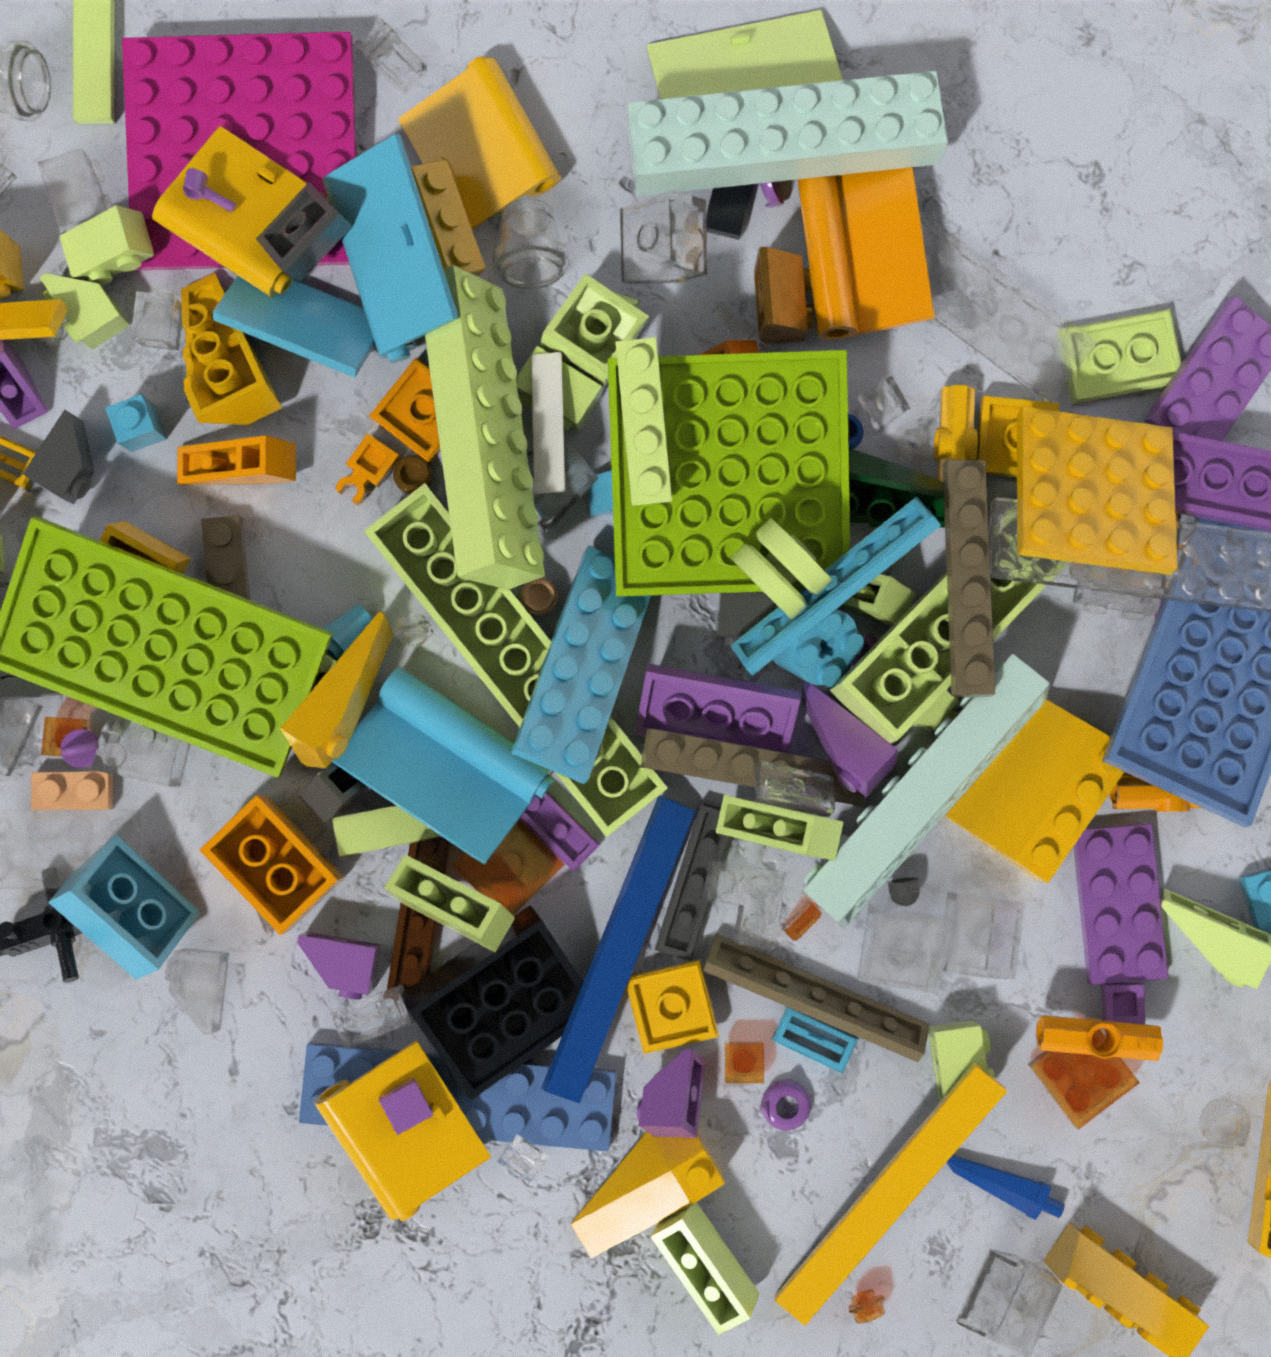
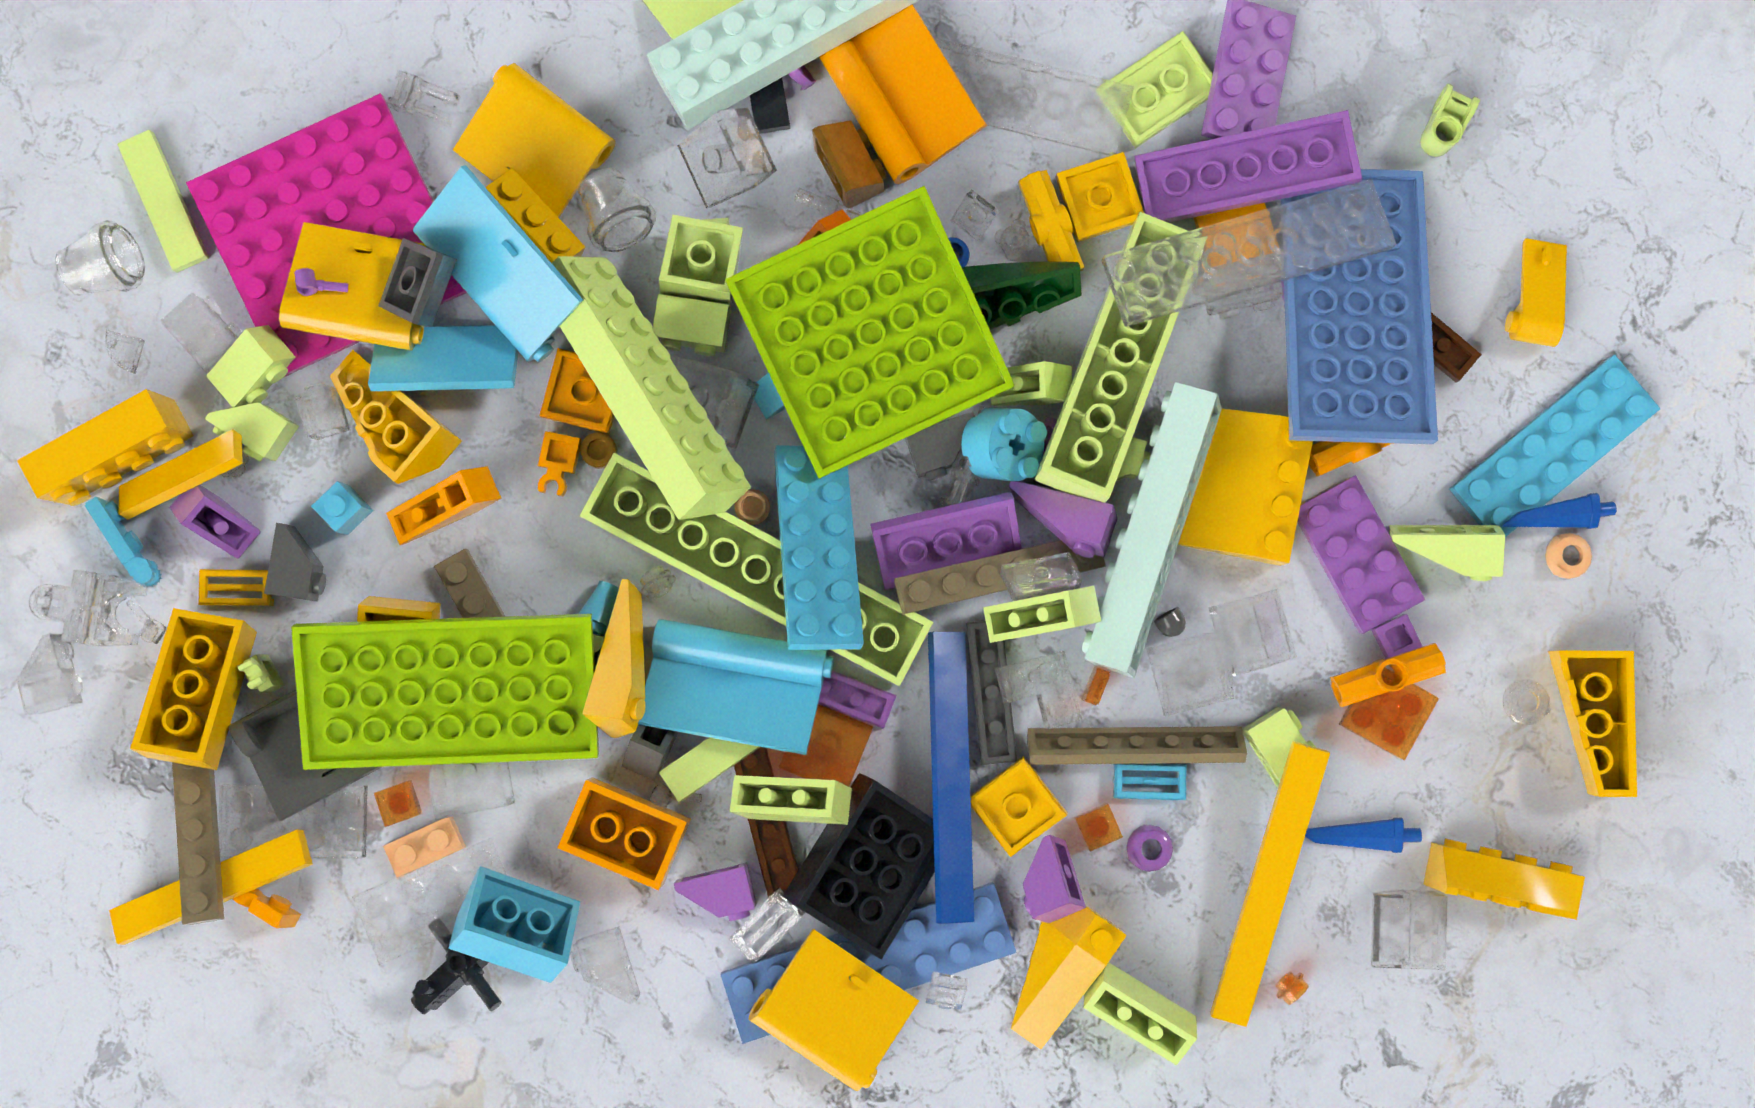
camera: 20 degrees left, 0 degrees up
(79, 748) = (416, 806): medium lavender tile -> none
(405, 1106) = (828, 987): medium lavender tile -> none
(548, 423) = (696, 356): white sticker -> none
(643, 421) = (779, 320): yellowish green brick -> none
(781, 568) = (949, 393): yellowish green wheel -> none
(848, 577) = (1000, 389): medium azure tile -> none
(968, 578) = (1110, 334): dark tan plate -> none
(1095, 491) = (1186, 214): yellow plate -> none

